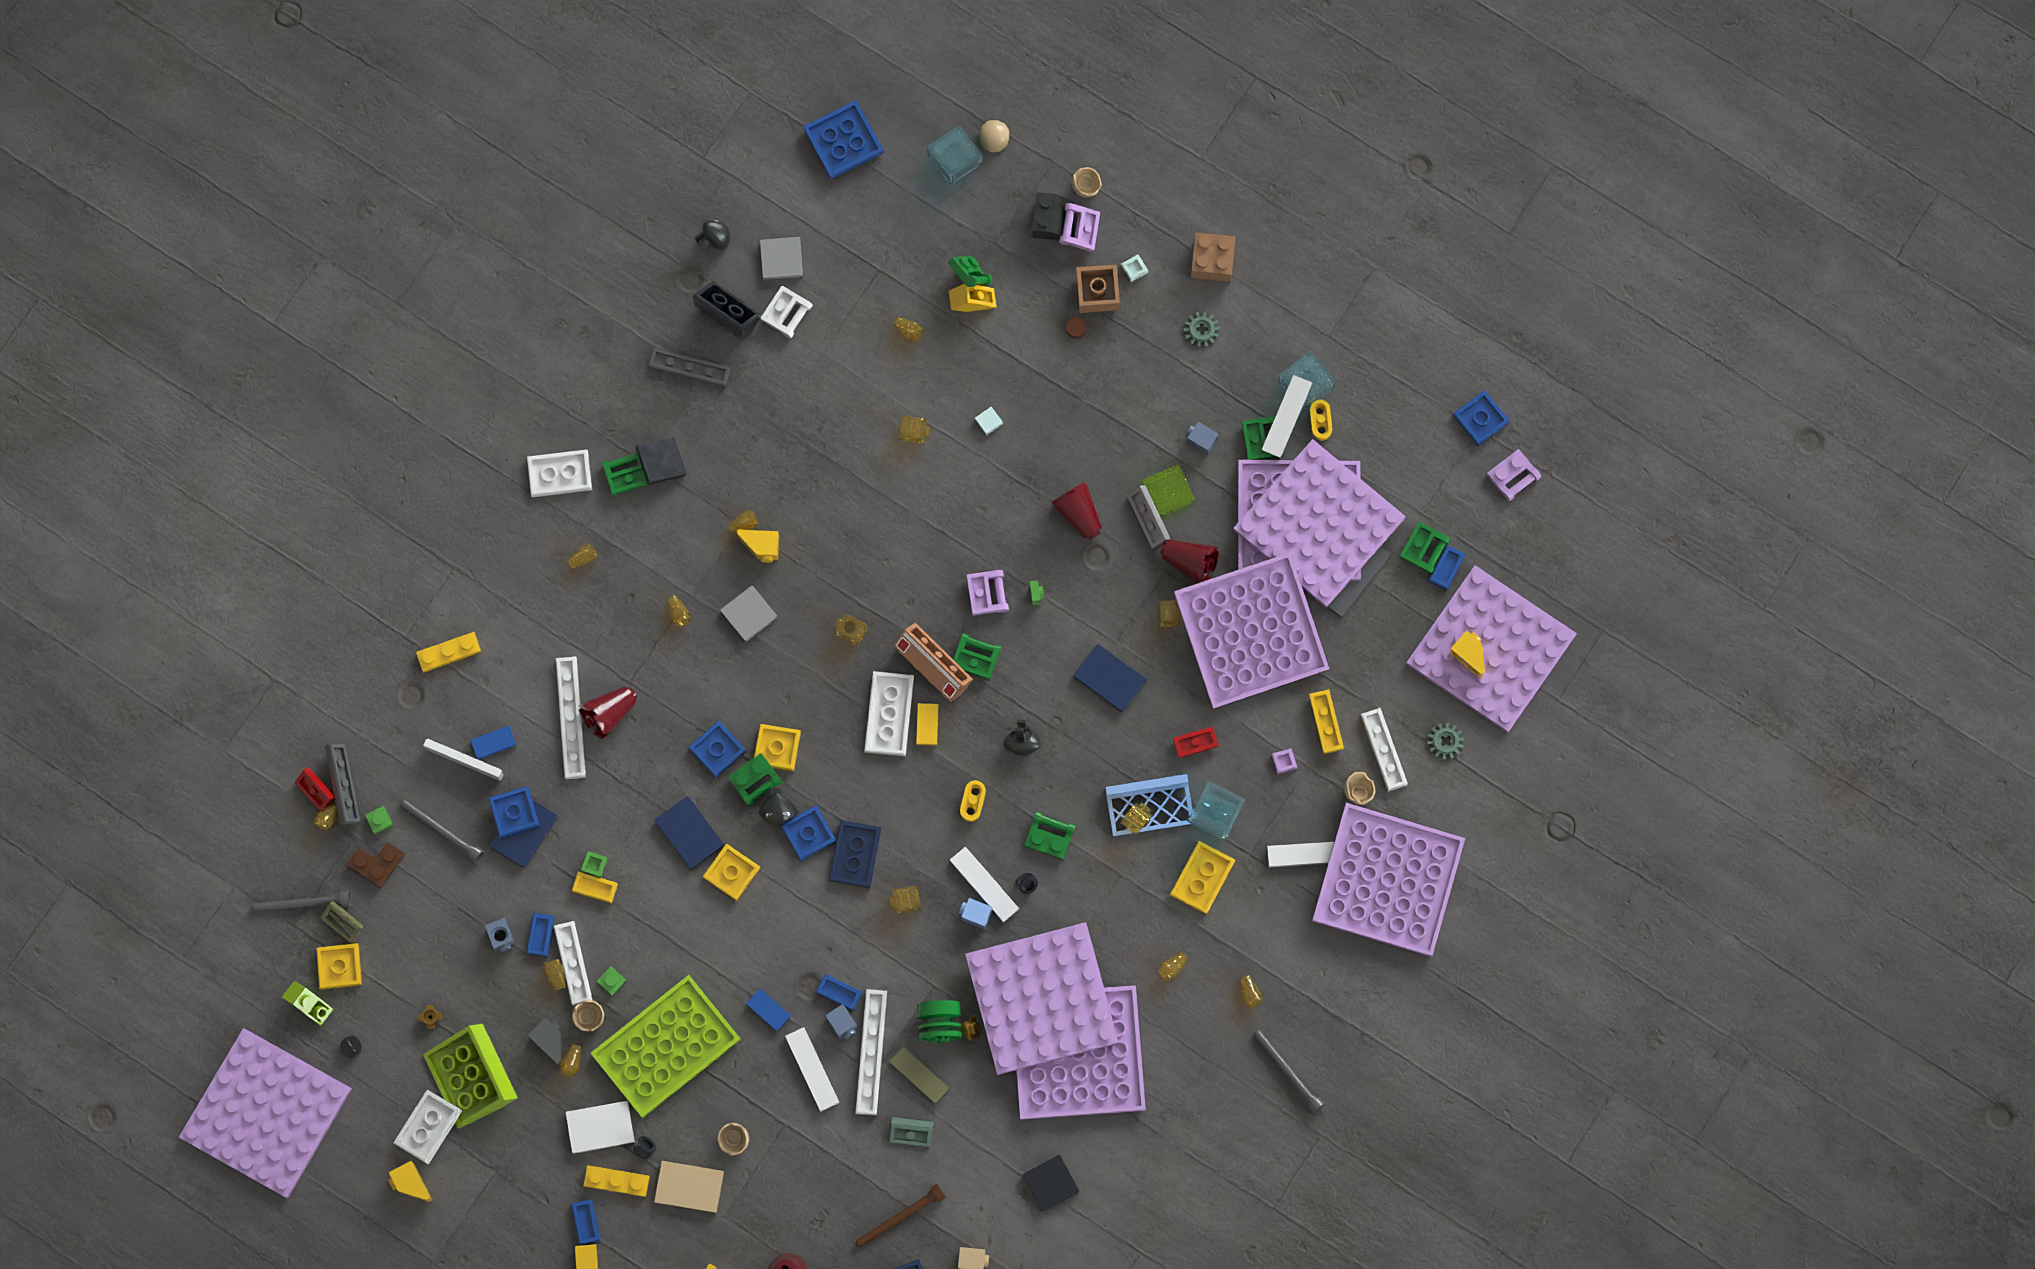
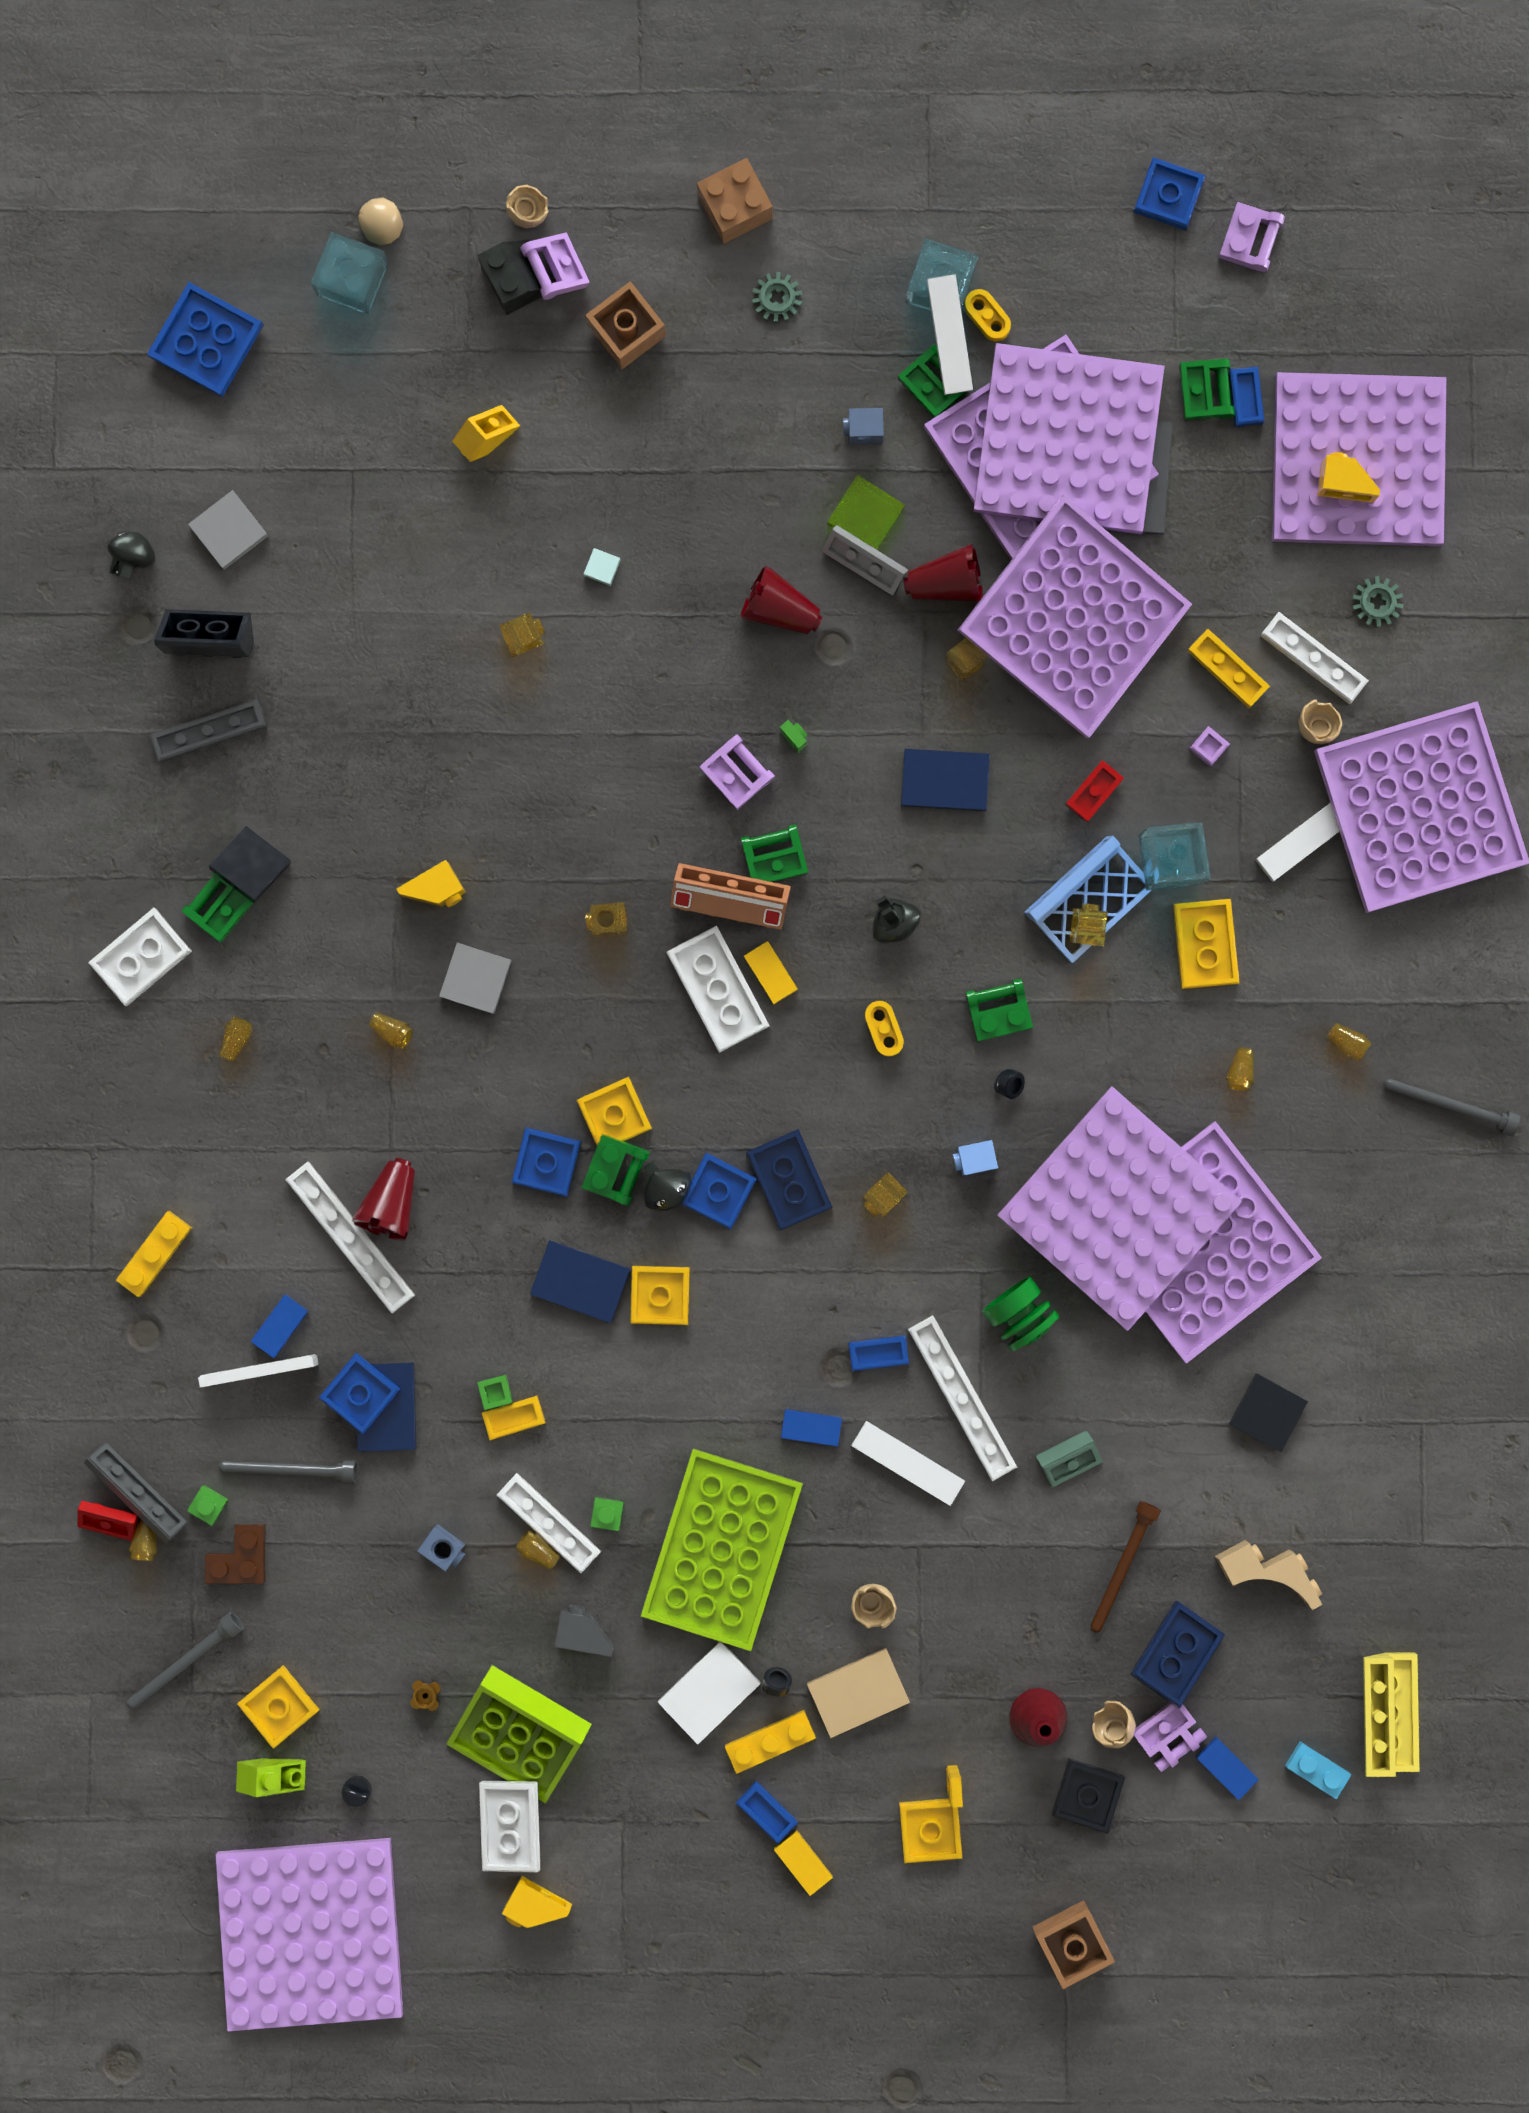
camera: 30 degrees left, 10 degrees up
(343, 919) = (246, 1653): olive tile -> none
(540, 935) = (488, 1515): blue tile -> none
(571, 1062) = (624, 1638): clear yellow cone -> none
(588, 1015) = (608, 1574): tan hair -> none
(744, 521) = (396, 874): clear yellow cone -> none
(781, 307) = (267, 590): white plate -> none
(841, 1022) = (906, 1387): sand blue brick -> none
(911, 330) = (436, 517): clear yellow cone -> none
(919, 1075) = (1035, 1388): olive tile -> none
(969, 272) = (460, 402): green plate -> none
(970, 1029) = (1059, 1296): pearl gold plate -> none
(984, 884) = (961, 1117): white tile -> none
(1076, 327) = (629, 389): copper tile -> none
(1134, 268) = (650, 274): light aqua tile -> none

